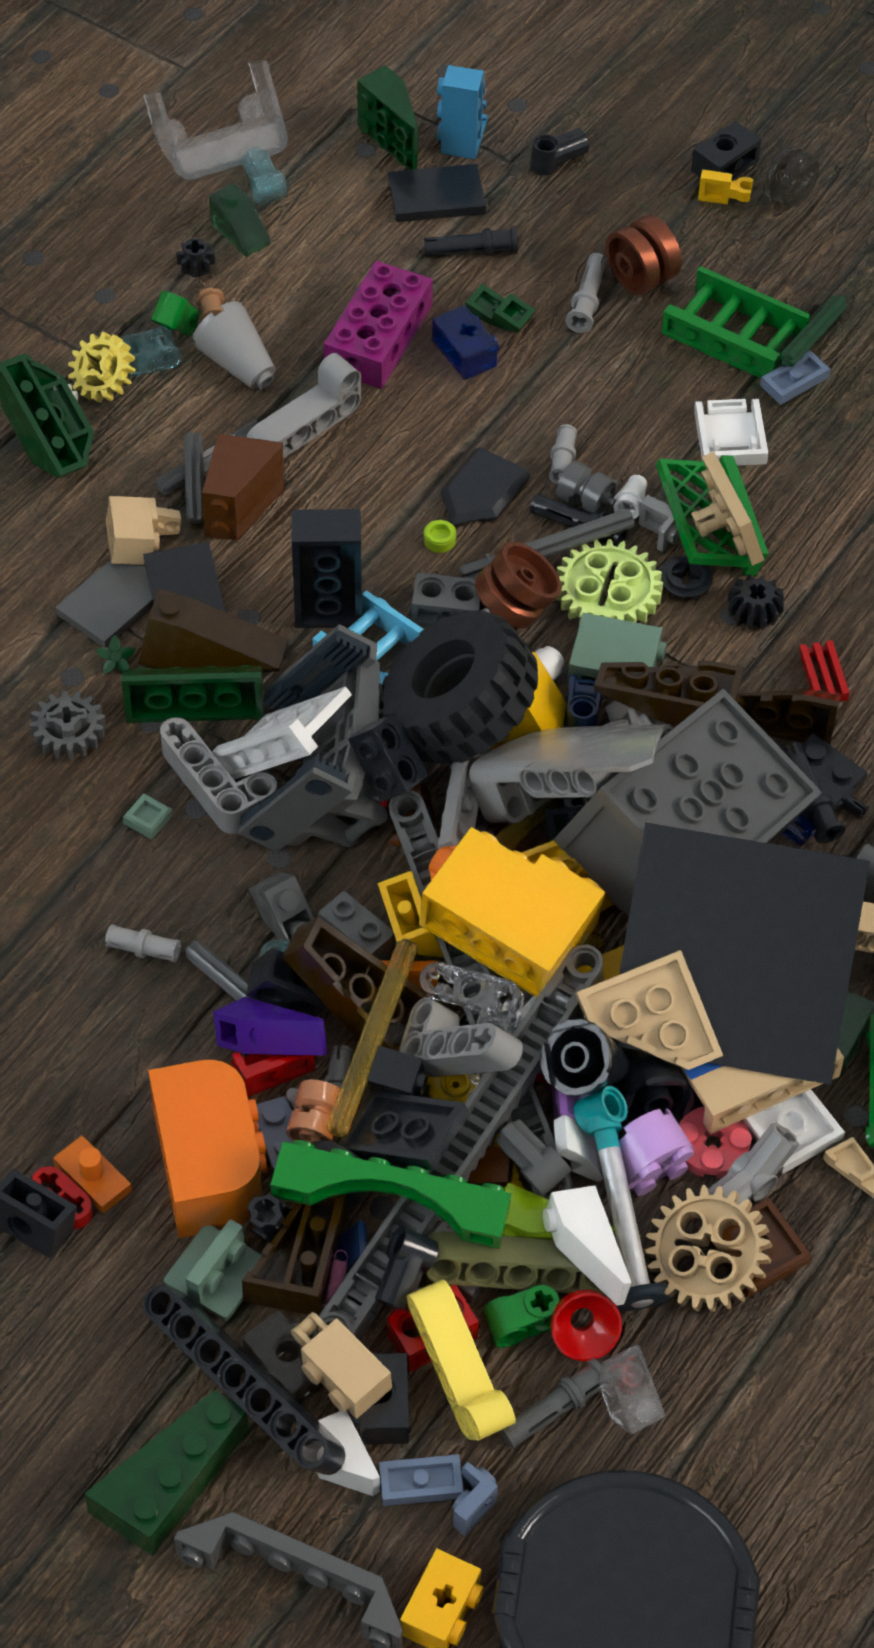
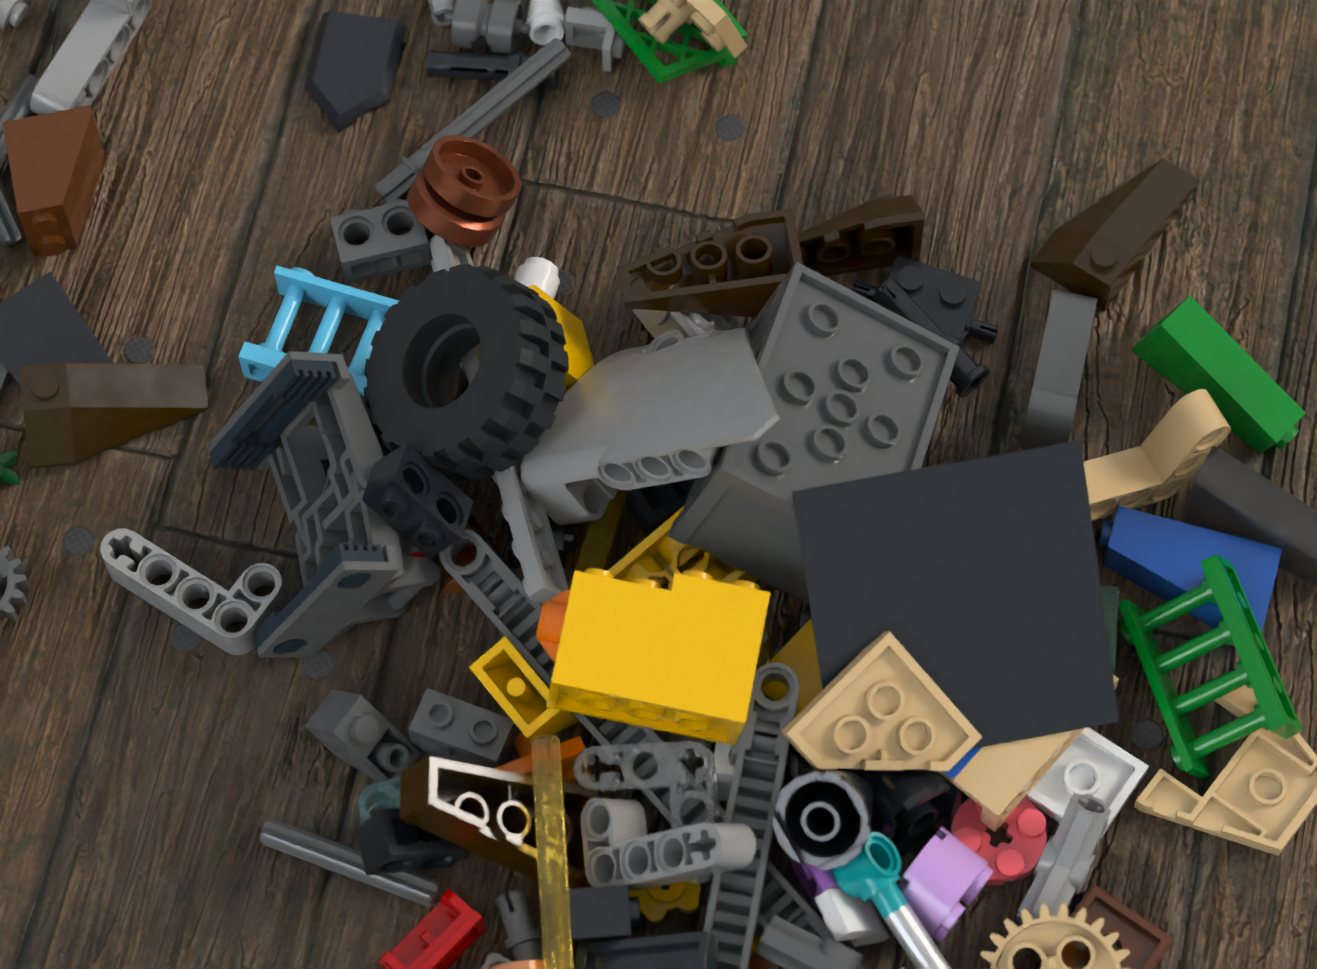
camera: 20 degrees left, 10 degrees up
(143, 943) = (202, 848): light grey pin -> none
(147, 816) = (131, 672): sand green tile -> none
(193, 694) = (118, 484): dark green slope -> none
(268, 1029) = (413, 911): dark purple slope -> none
(280, 736) = (262, 509): white fence -> none
(326, 567) = (223, 259): black brick -> none
(439, 536) = (330, 150): lime tile -> none
(582, 703) = (604, 314): dark blue piece -> none
(613, 640) = (613, 229): sand green panel -> none
(630, 594) = (609, 142): yellowish green gear -> none
(673, 572) = (637, 96): black gear -> none
(755, 602) = (755, 102): black gear -> none
(819, 652) = (854, 139): red tile -> none

